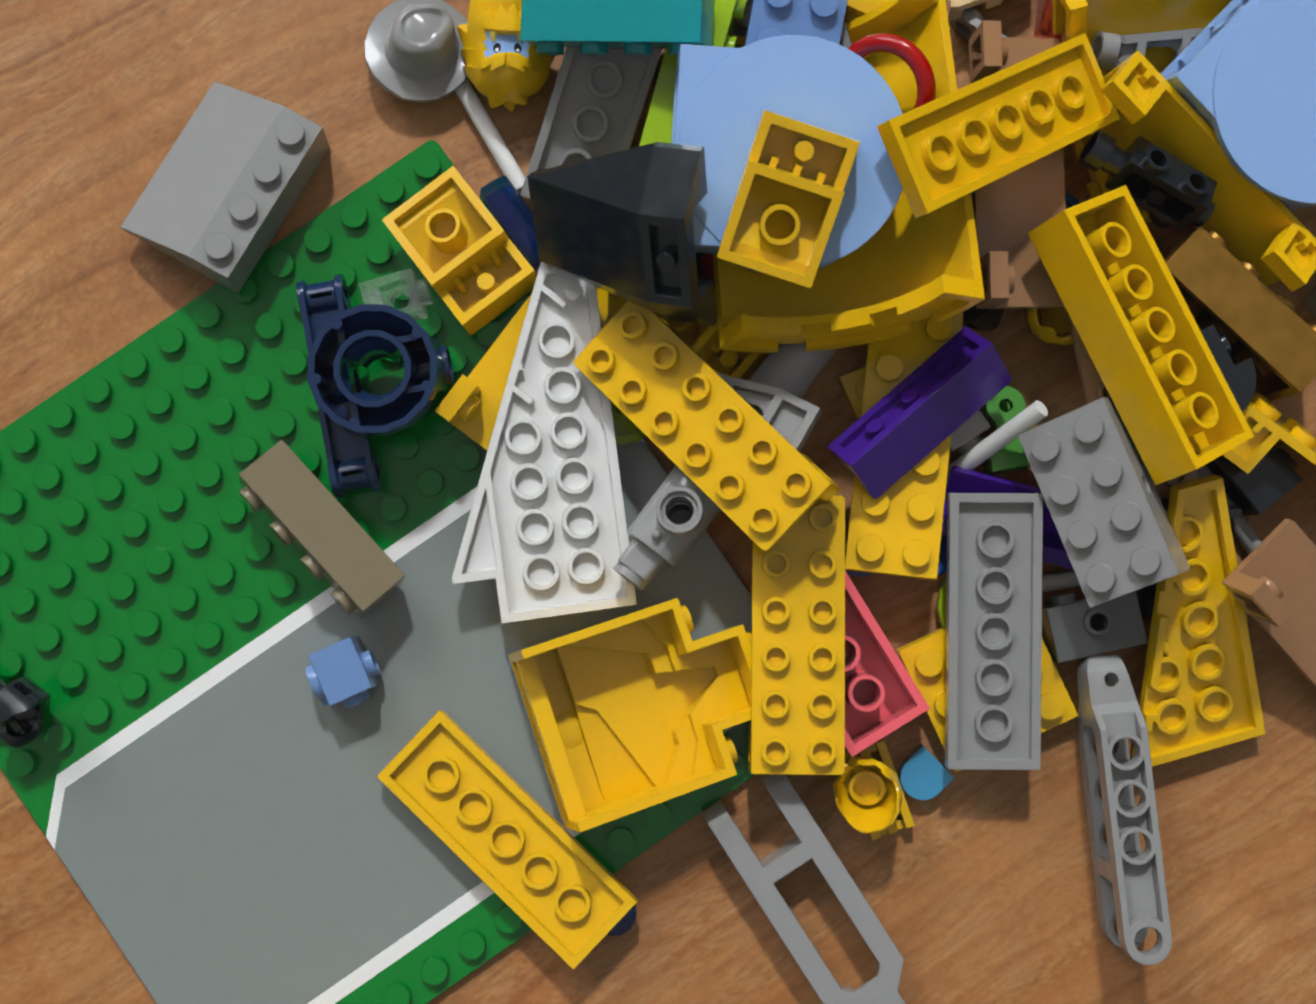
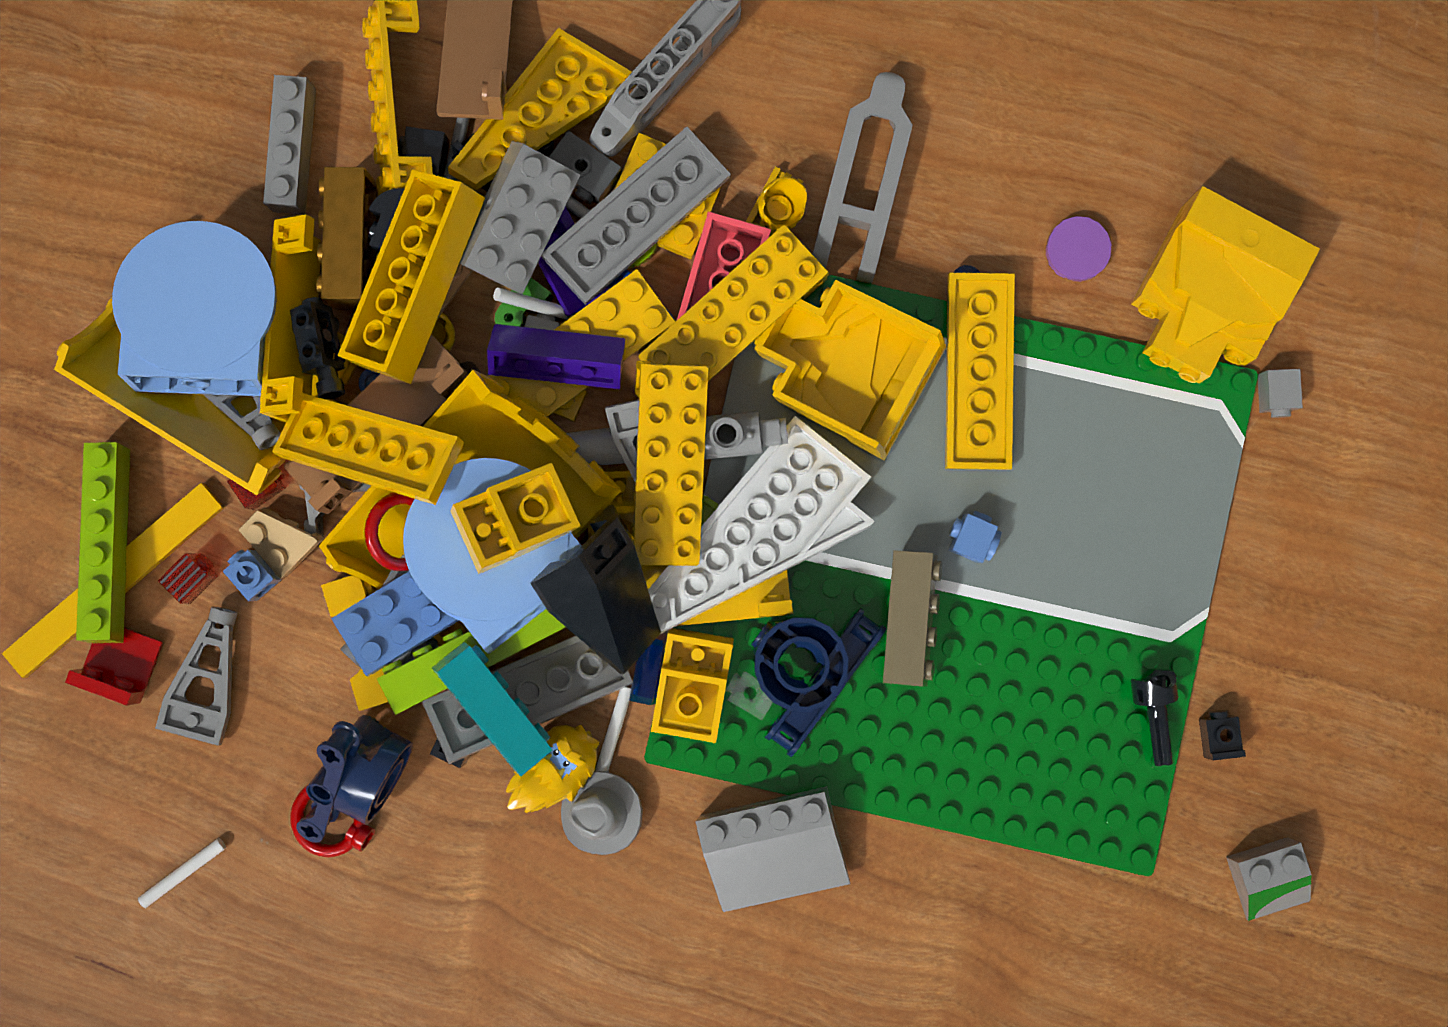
camera: 135 degrees left, 0 degrees up
(923, 775) = (744, 185): dark azure tile -> none

